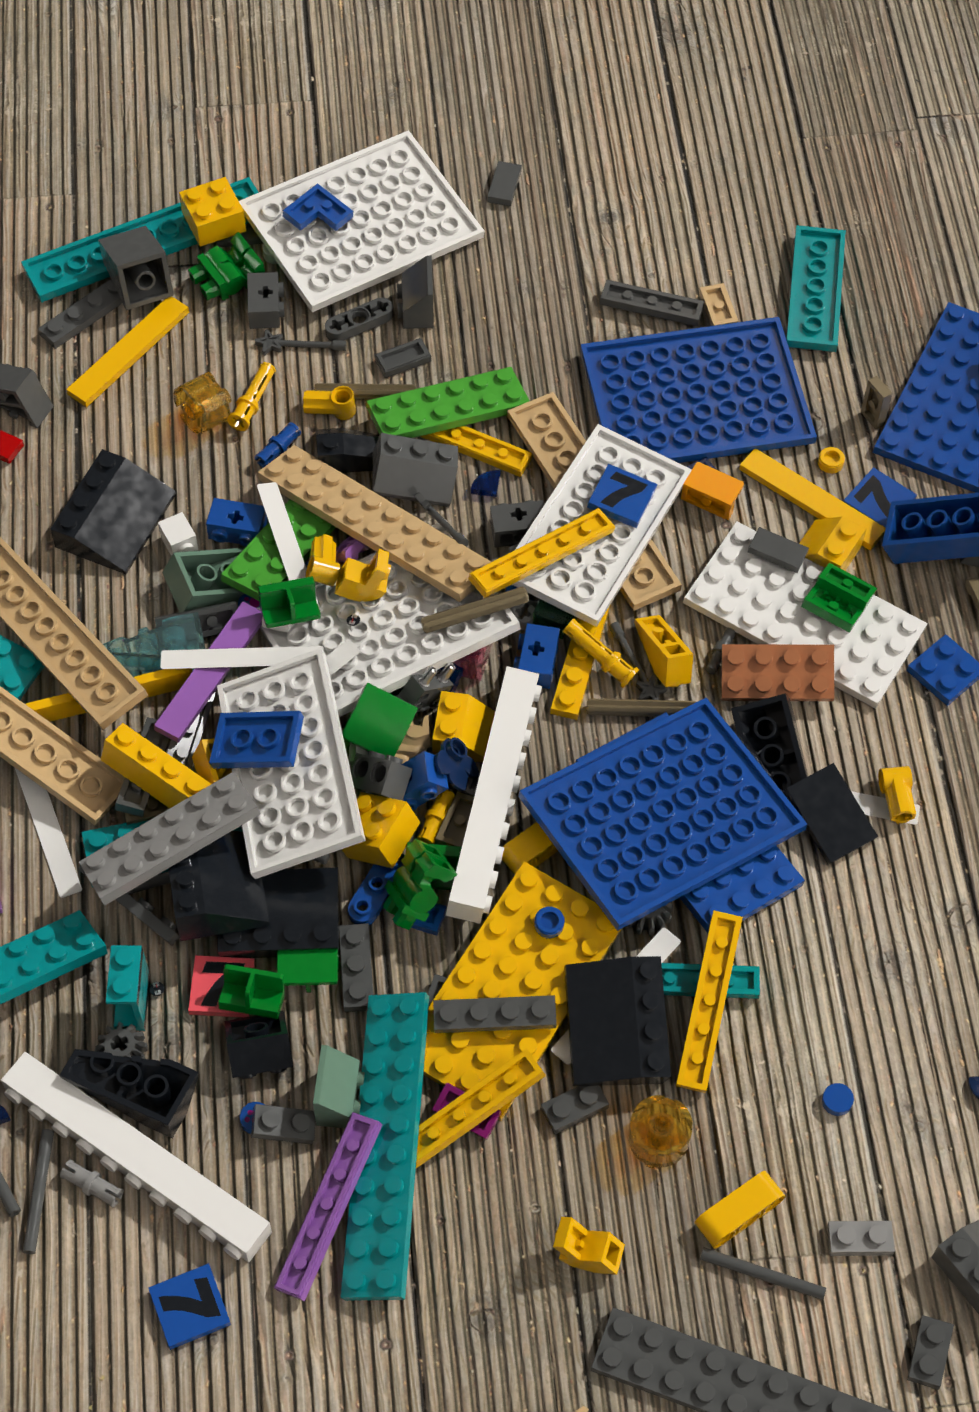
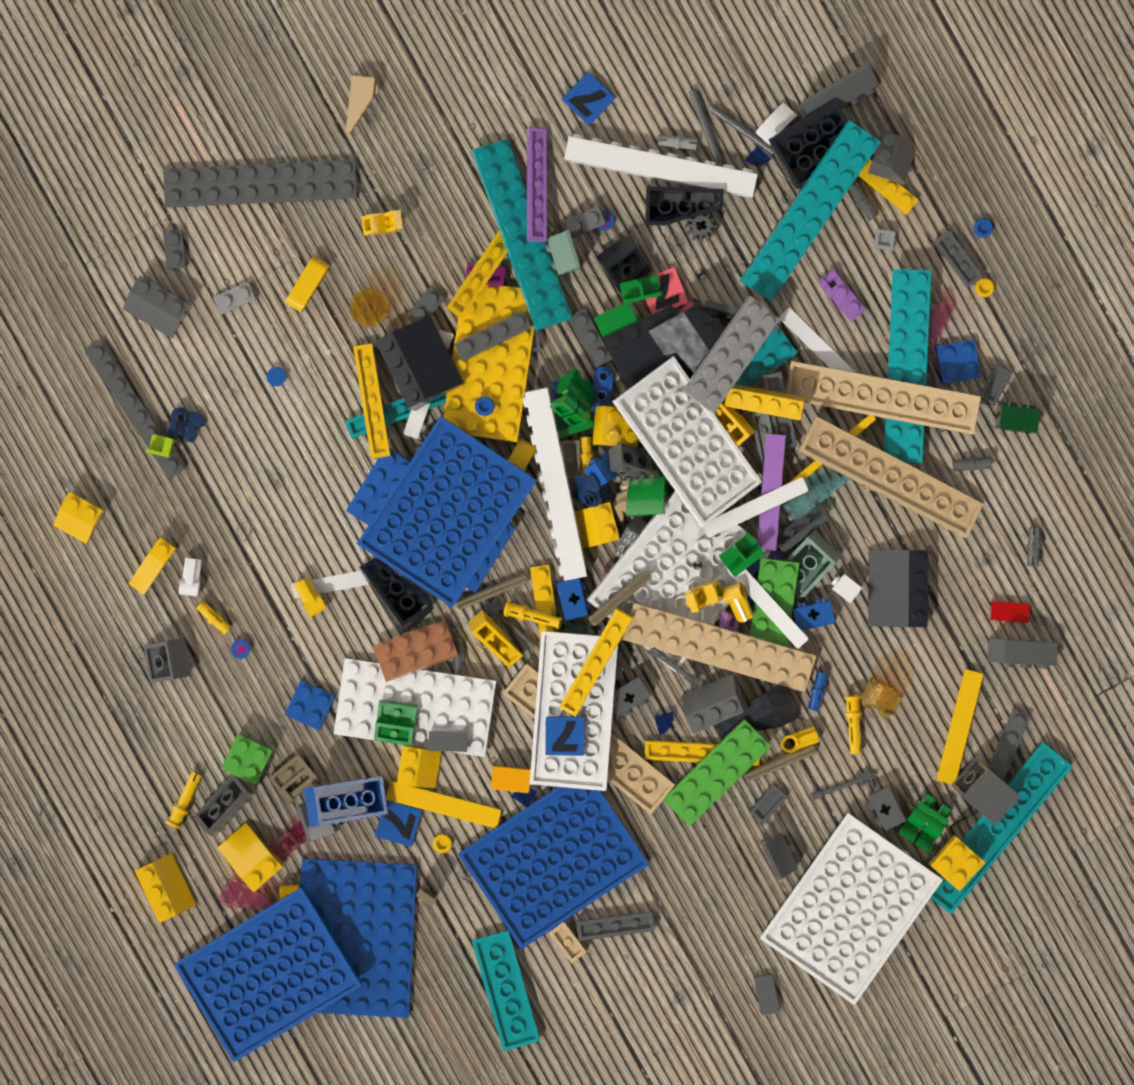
camera: 155 degrees right, 30 degrees up
(128, 985) = (712, 258): teal panel -> none
(256, 739) = (712, 445): blue plate -> none
(318, 204) = (883, 899): blue plate -> none
(364, 310) = (811, 815): dark grey beam -> none
(763, 1273) = (281, 254): dark grey bar -> none
(831, 813) = (345, 562): black tile -> none

